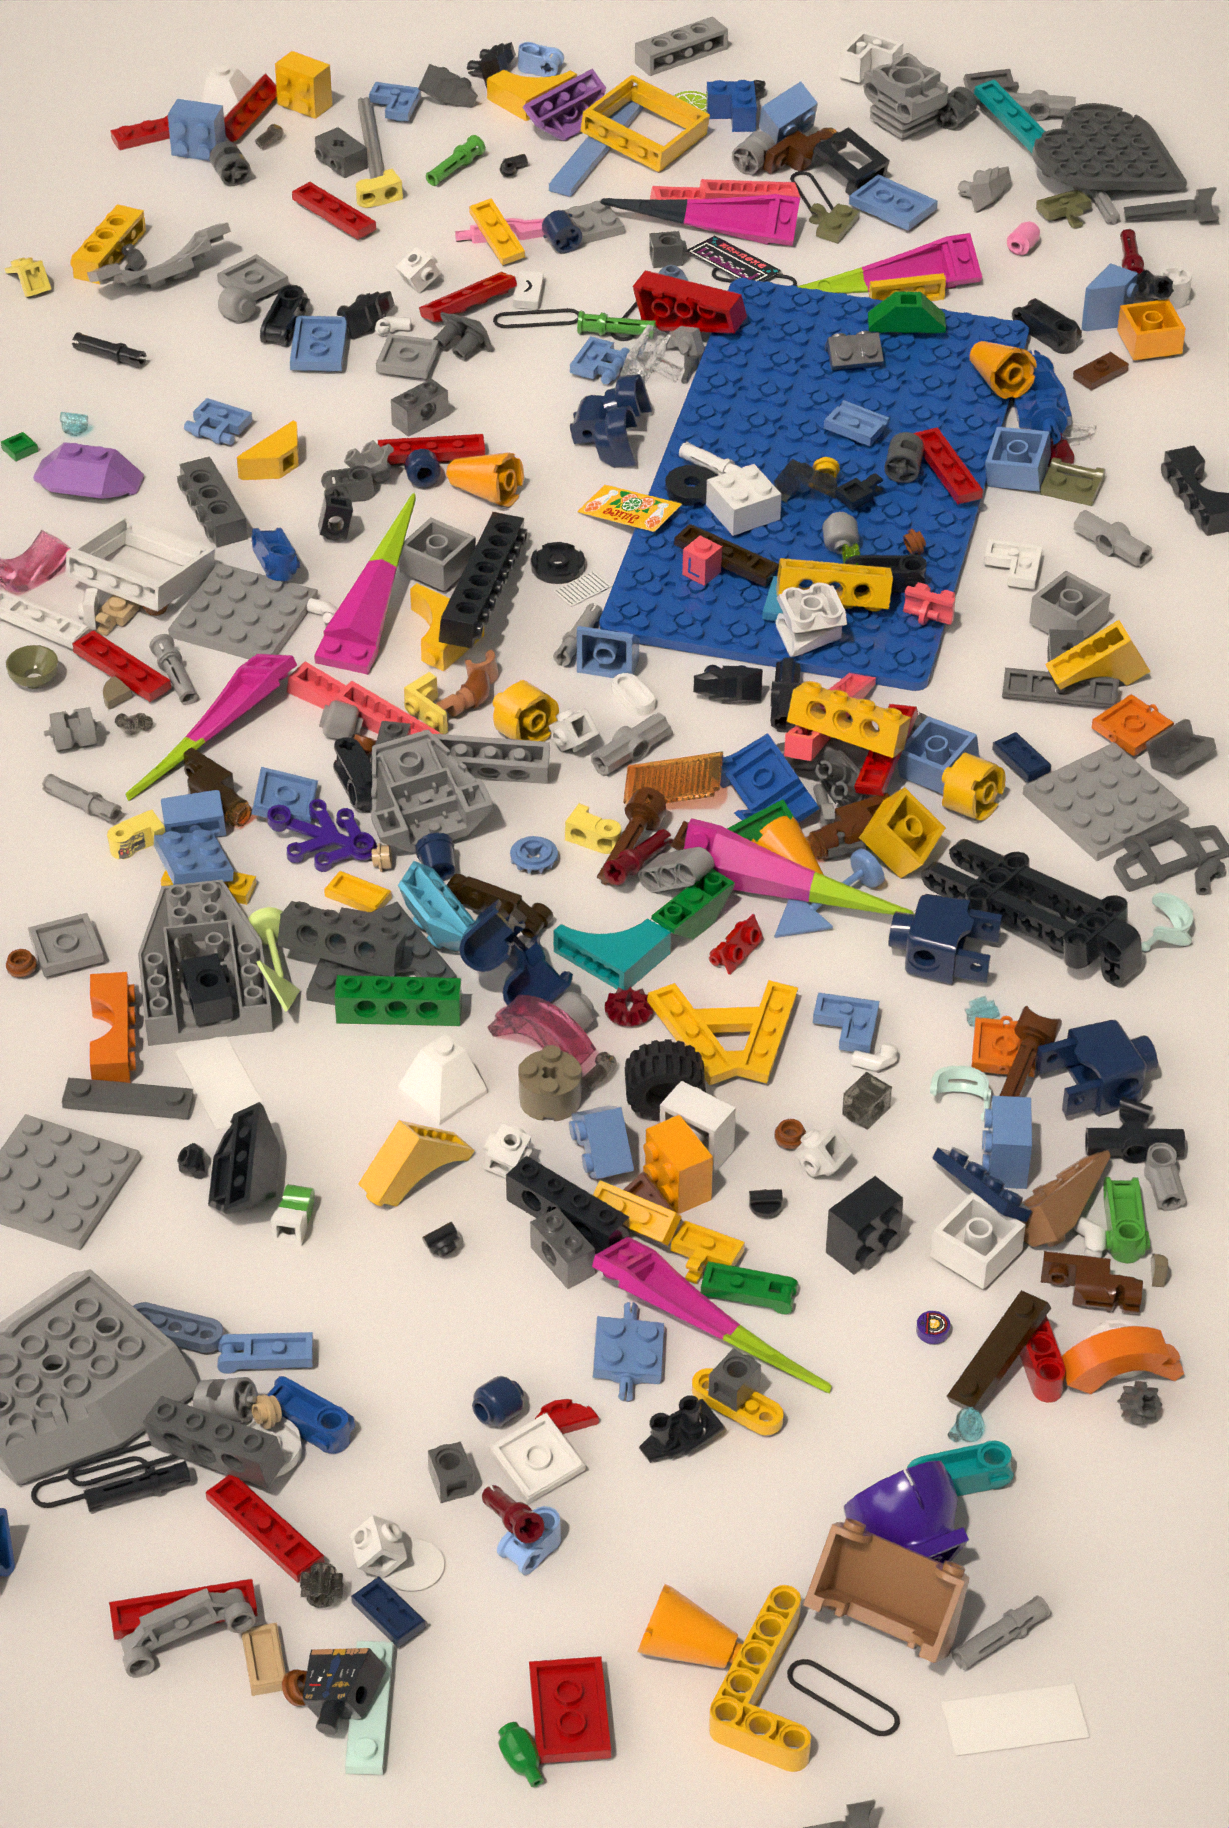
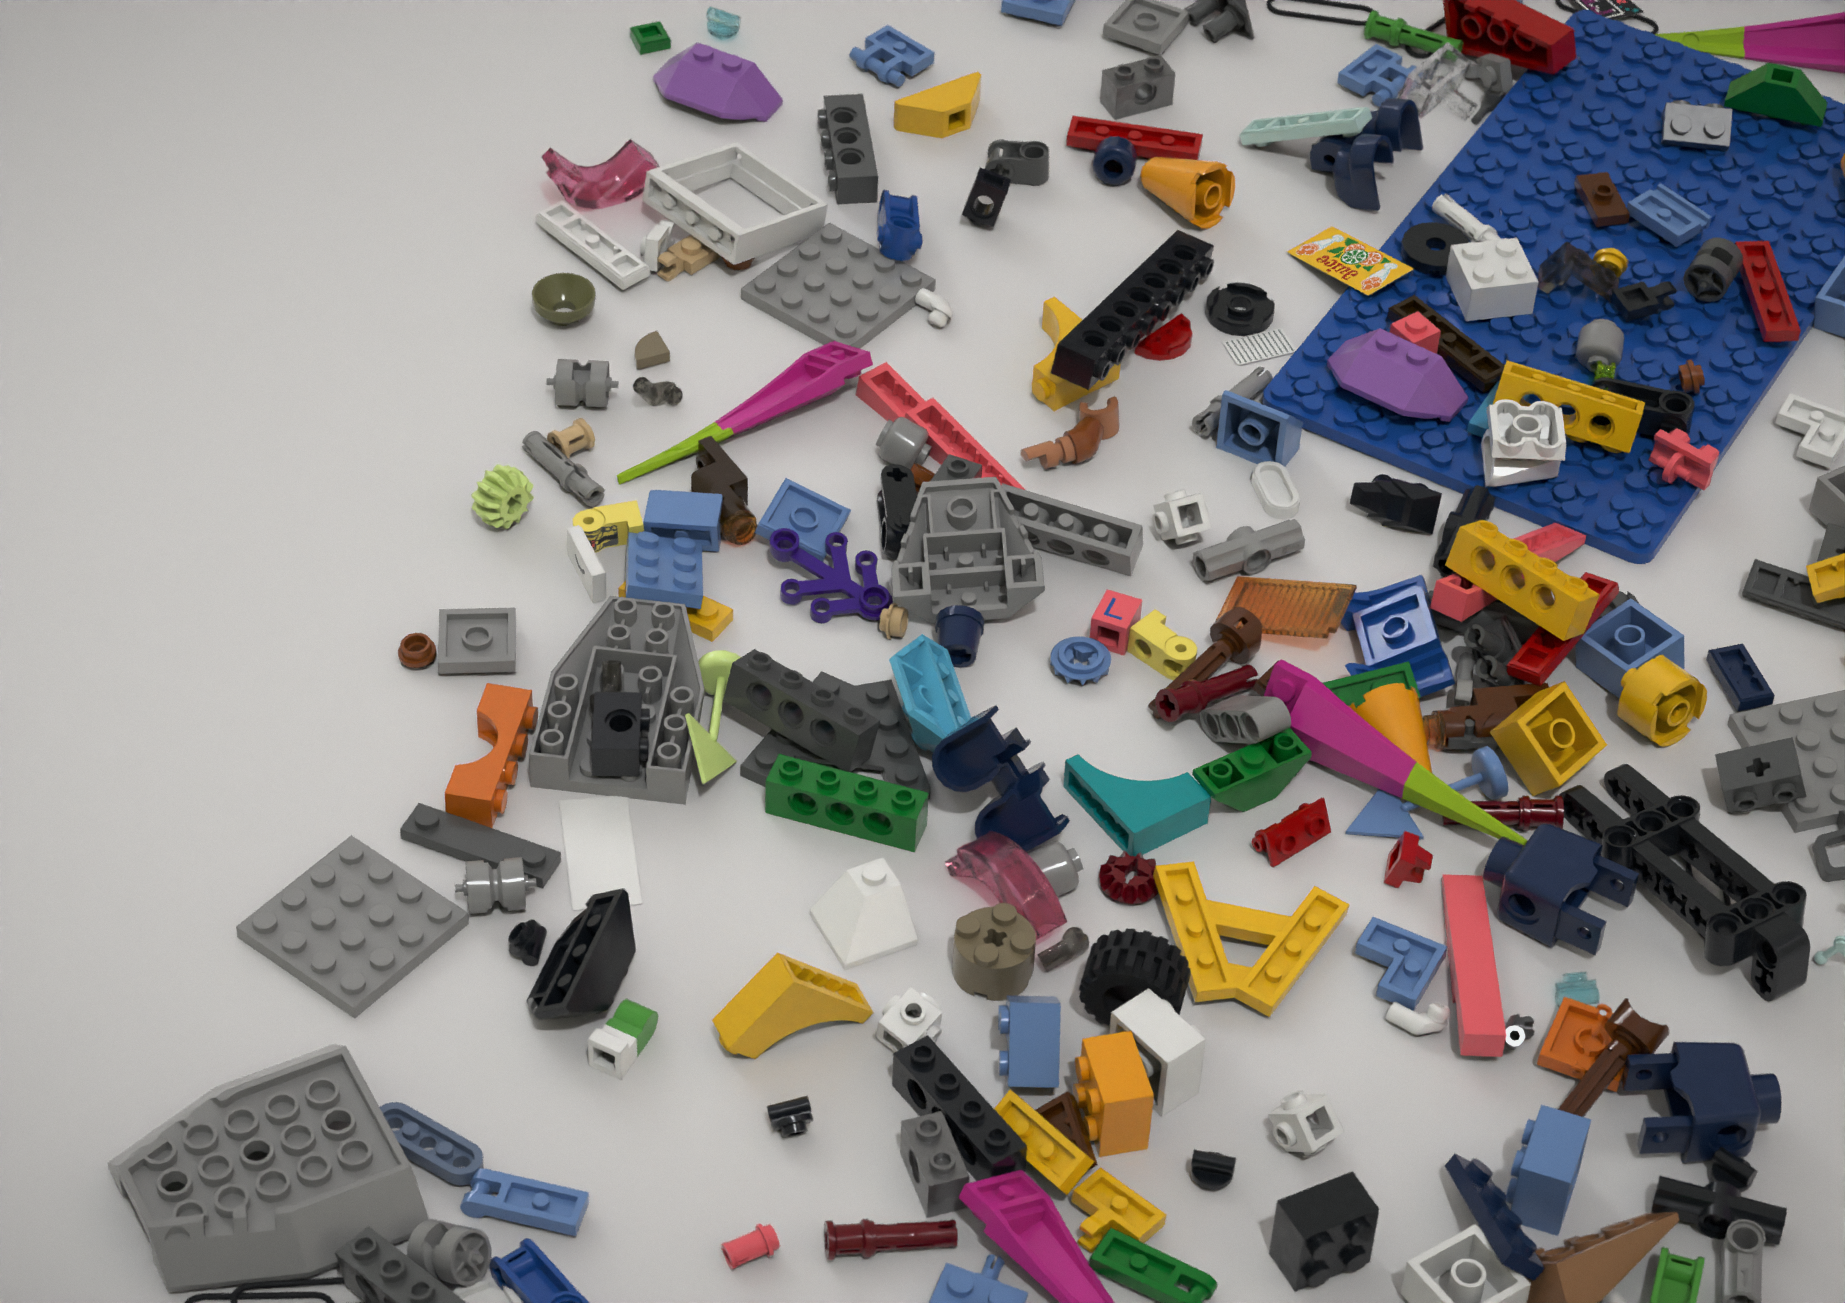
camera: 15 degrees right, 0 degrees up
(45, 829) = (502, 496): none -> yellowish green gear
(79, 773) = (571, 438): none -> tan bush
(123, 665) = (671, 321): red plate -> none
(129, 867) = (586, 563): none -> white tile
(147, 1126) = (491, 885): none -> light grey wheel
(184, 689) = (728, 328): light grey pin -> none
(266, 1411) = (491, 1278): tan plate -> none
(357, 626) = (964, 335): dark pink plate -> none
(357, 892) = (848, 658): yellow tile -> none
(372, 457) = (1056, 136): light grey hips -> none
(419, 702) = (1006, 441): light yellow bracket -> none
(436, 554) = (1089, 265): light grey brick -> none
(445, 1342) = (751, 1246): none -> coral pin
(482, 894) = (1016, 711): dark brown plate -> none
(512, 599) = (1167, 341): none -> red tile
(524, 712) = (1127, 482): yellow brick -> none
(532, 420) = (1269, 130): none -> light aqua plate
(533, 1313) = (868, 1237): none -> dark red pin
(551, 818) = (1113, 620): none -> coral brick
(698, 587) = (1398, 376): none -> medium lavender wedge
(789, 1133) = (1272, 1087): dark orange plate -> none
(802, 421) = (1601, 199): none -> reddish brown plate
(828, 946) = (1407, 861): none -> red tile
(866, 1100) = (1387, 1070): clear smoke brick -> none
(900, 891) = (1523, 812): none -> dark red pin
(902, 1011) = (1473, 967): none -> coral slope
(930, 285) = (1818, 66): yellow plate -> none
(942, 1083) = (1494, 1069): light aqua helmet -> none
(949, 1050) = (1517, 1030): none -> dark grey arm
(1062, 824) = (1760, 775): none -> dark grey brick

